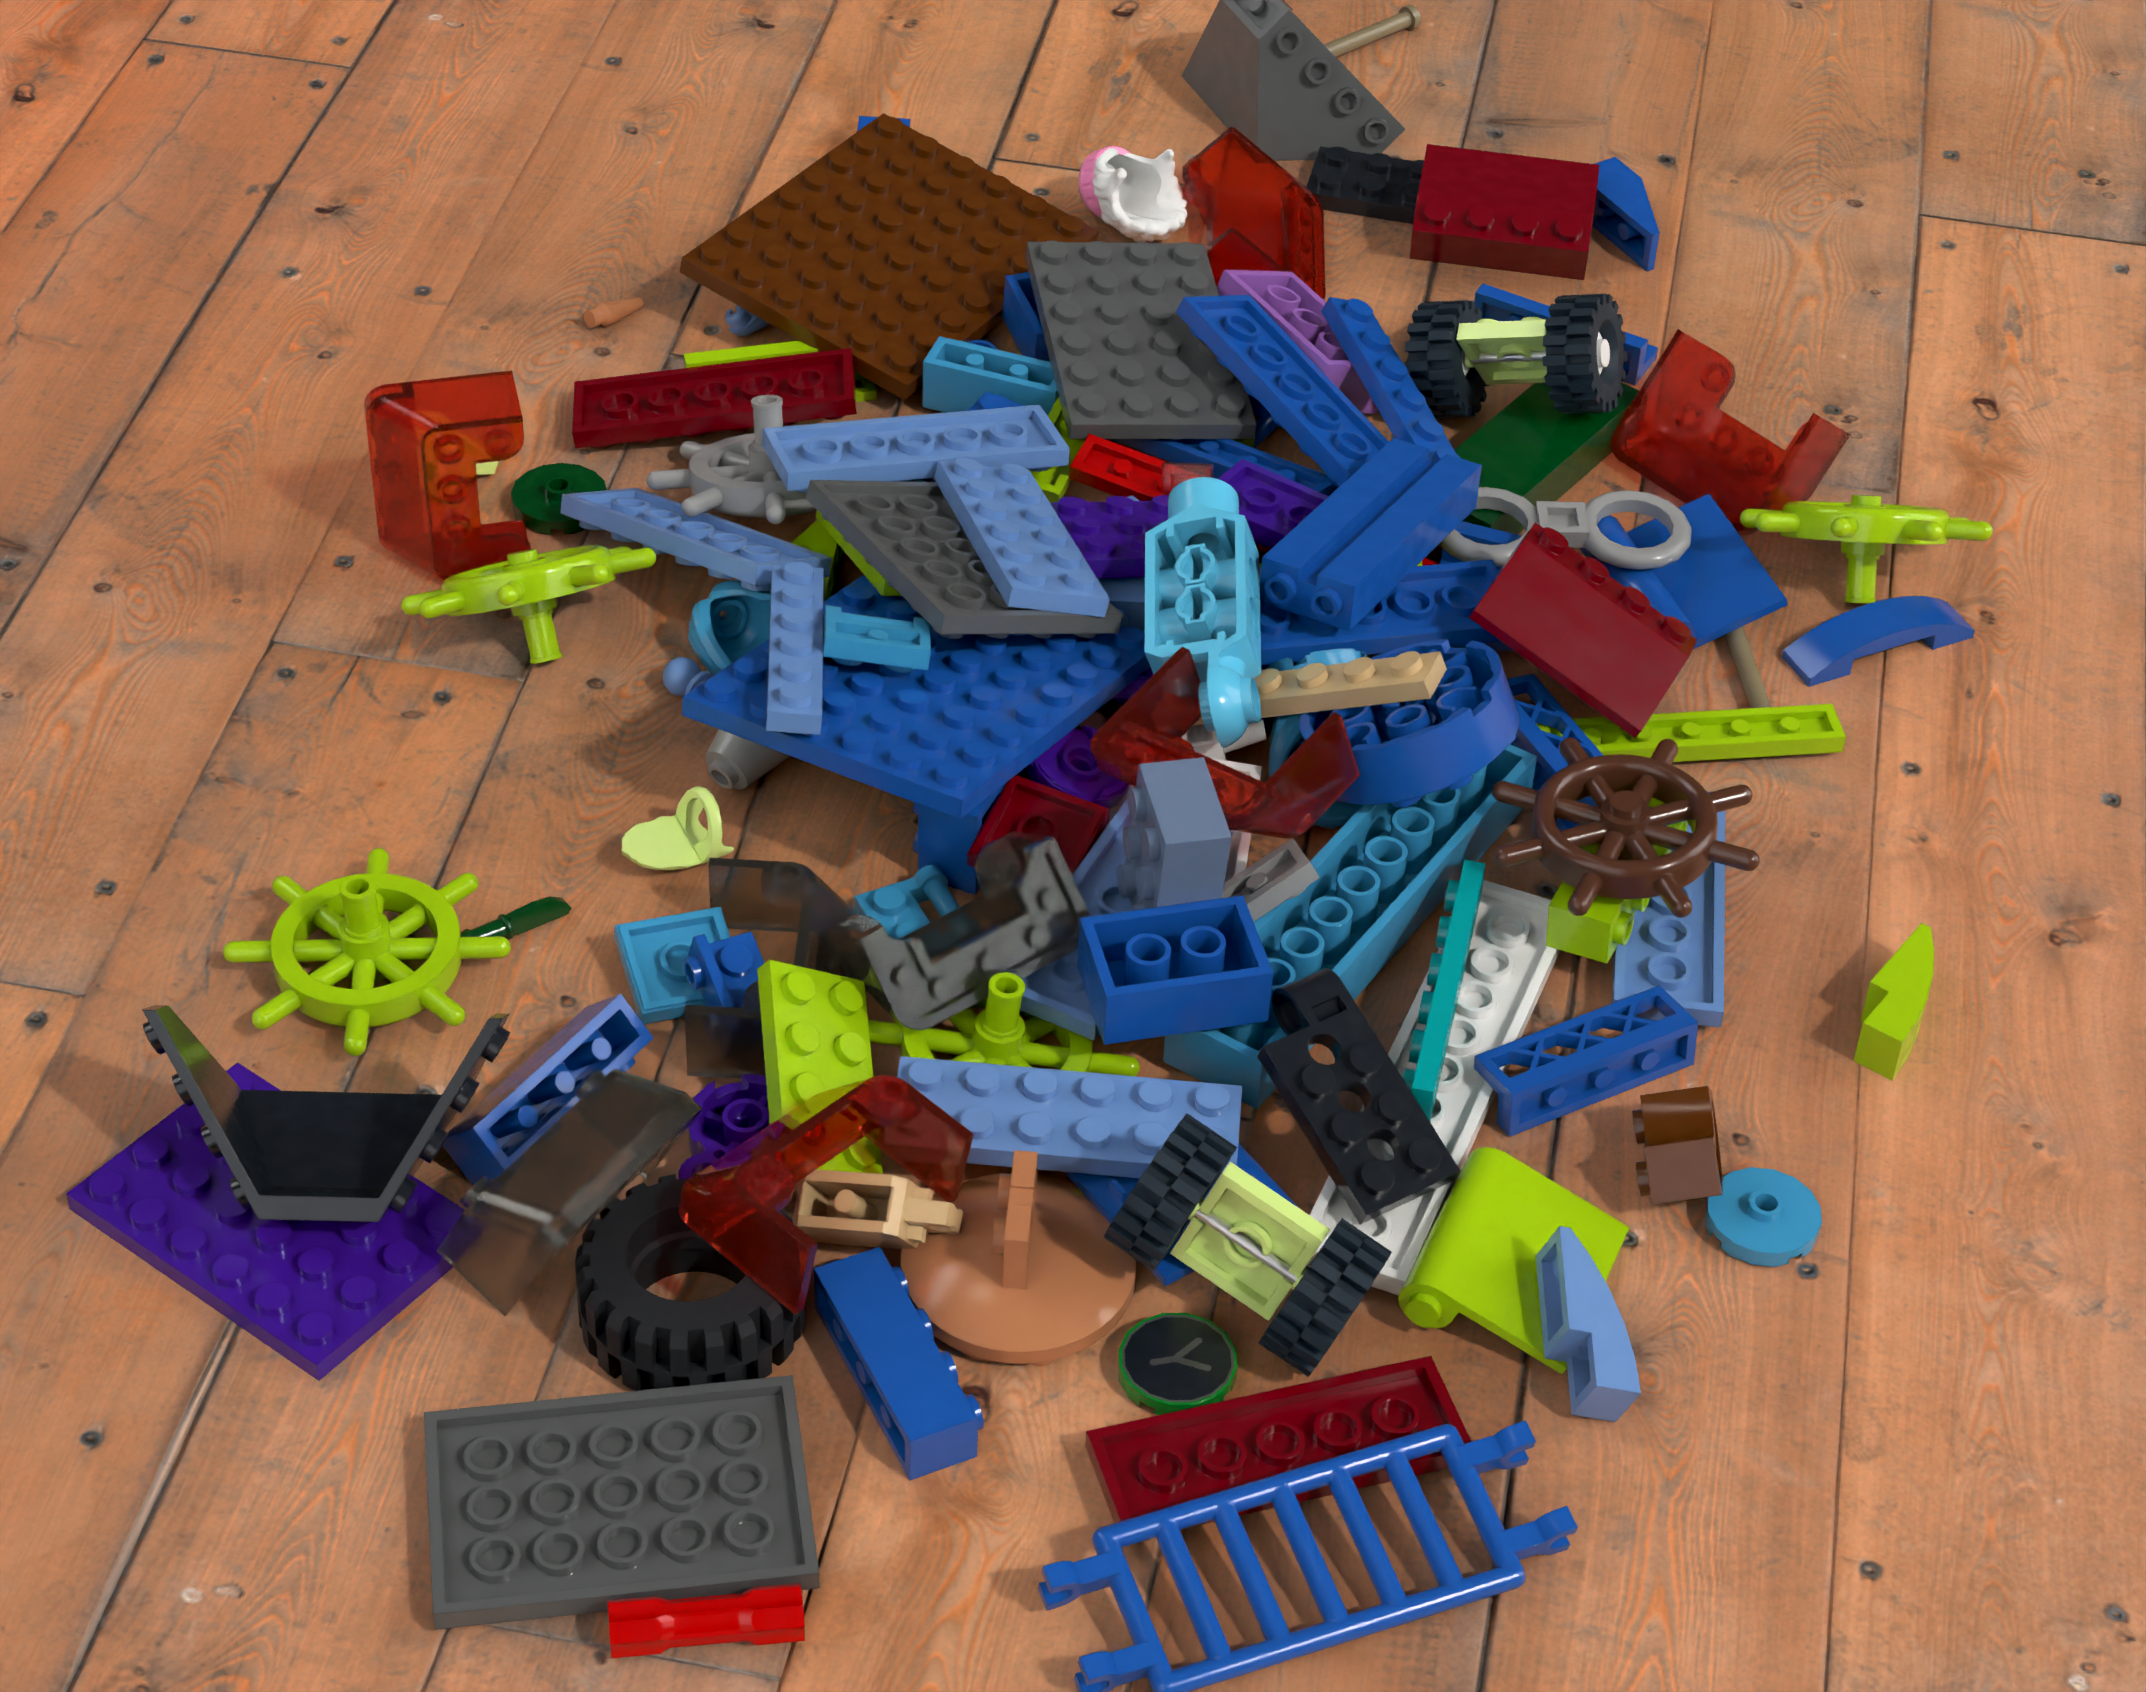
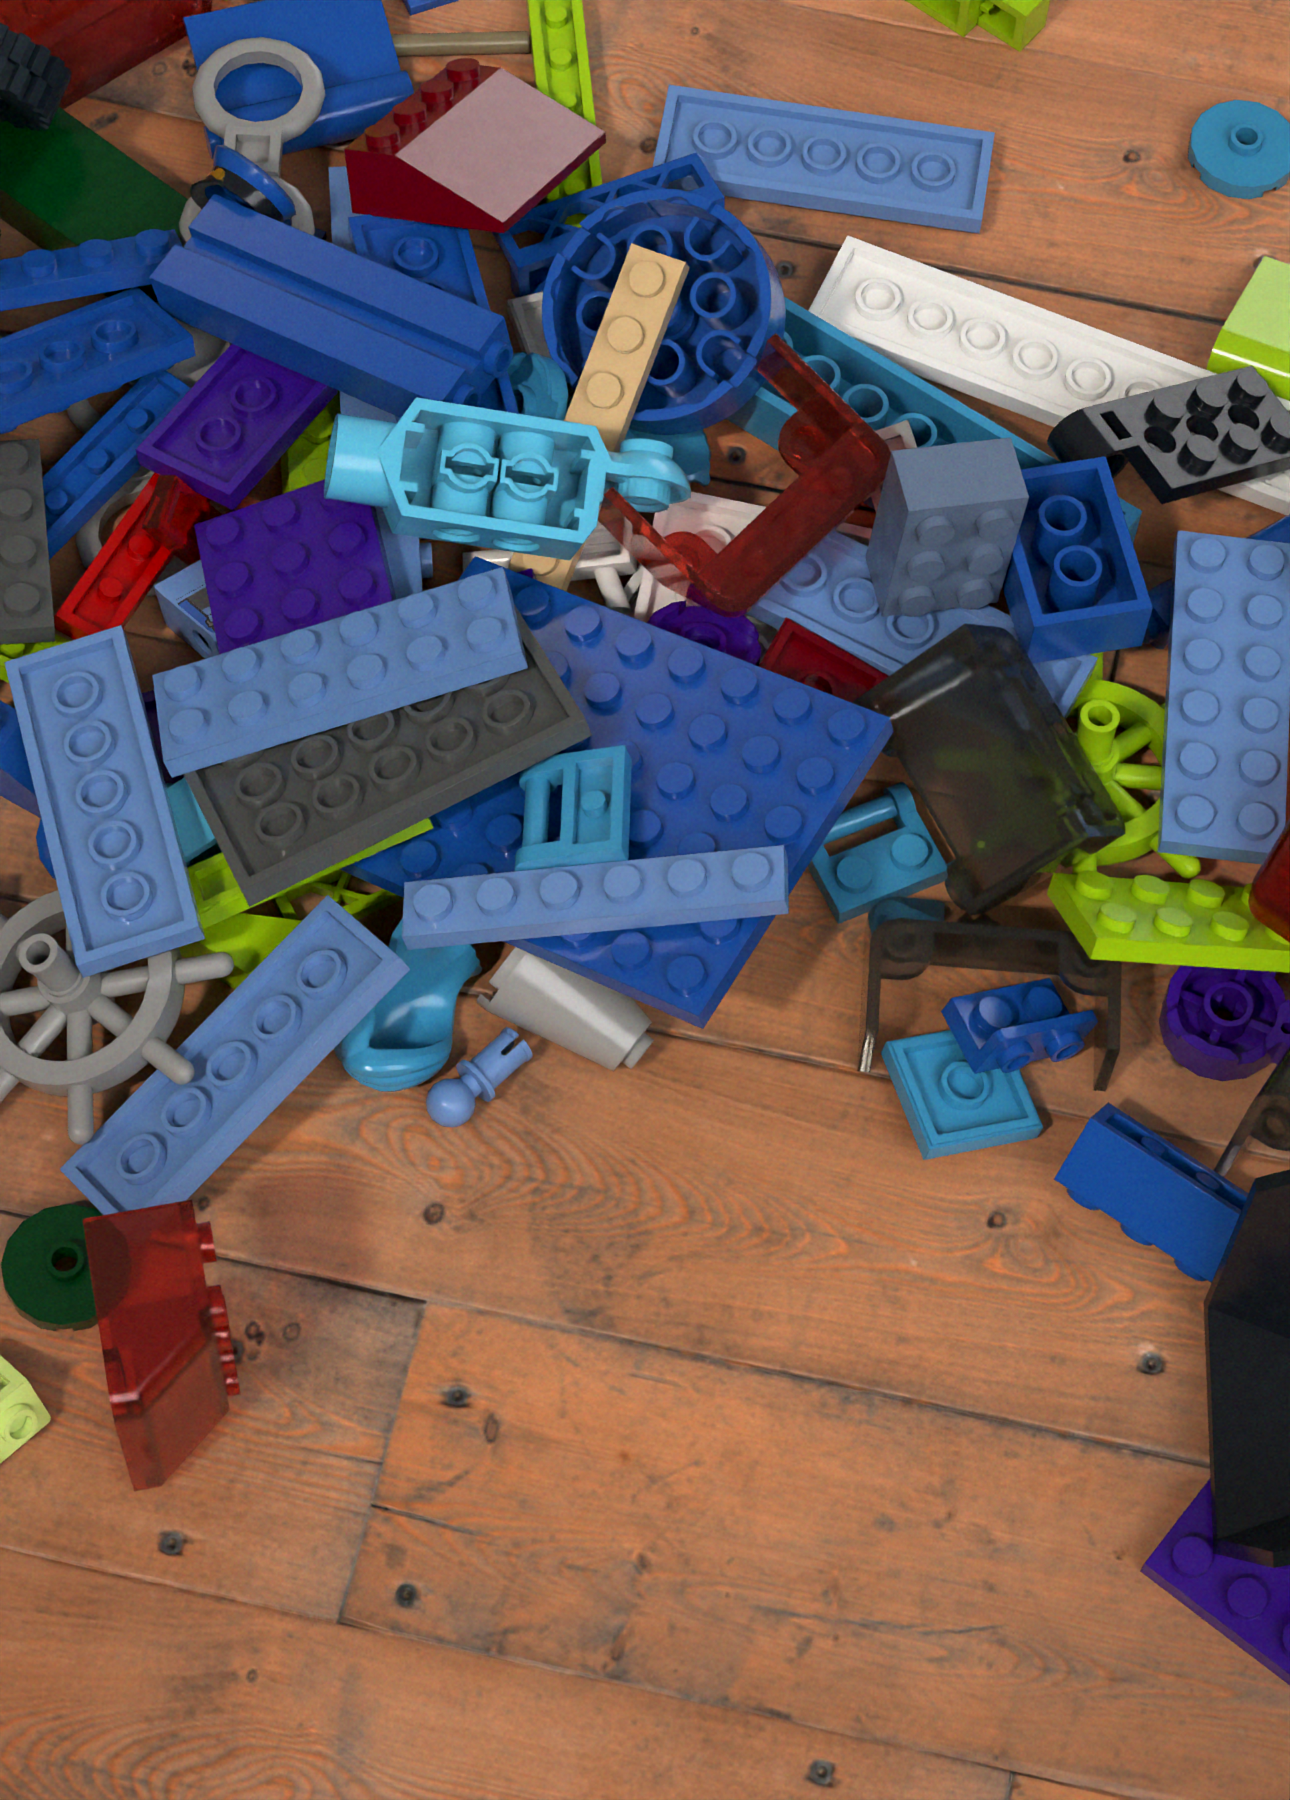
camera: 90 degrees left, 20 degrees up
(366, 950) = (964, 1429): lime piece -> none
(522, 919) = (894, 1288): dark green piece -> none
(530, 588) = (342, 1258): lime piece -> none
(678, 839) = (752, 1095): yellowish green piece -> none
(1446, 974) = (1003, 345): teal plate -> none
(1498, 491) = (243, 183): none -> piece
(1599, 1065) = (1070, 239): blue fence -> none
(1623, 841) = (816, 169): reddish brown brick -> none
(1678, 1146) = (1188, 189): reddish brown brick -> none

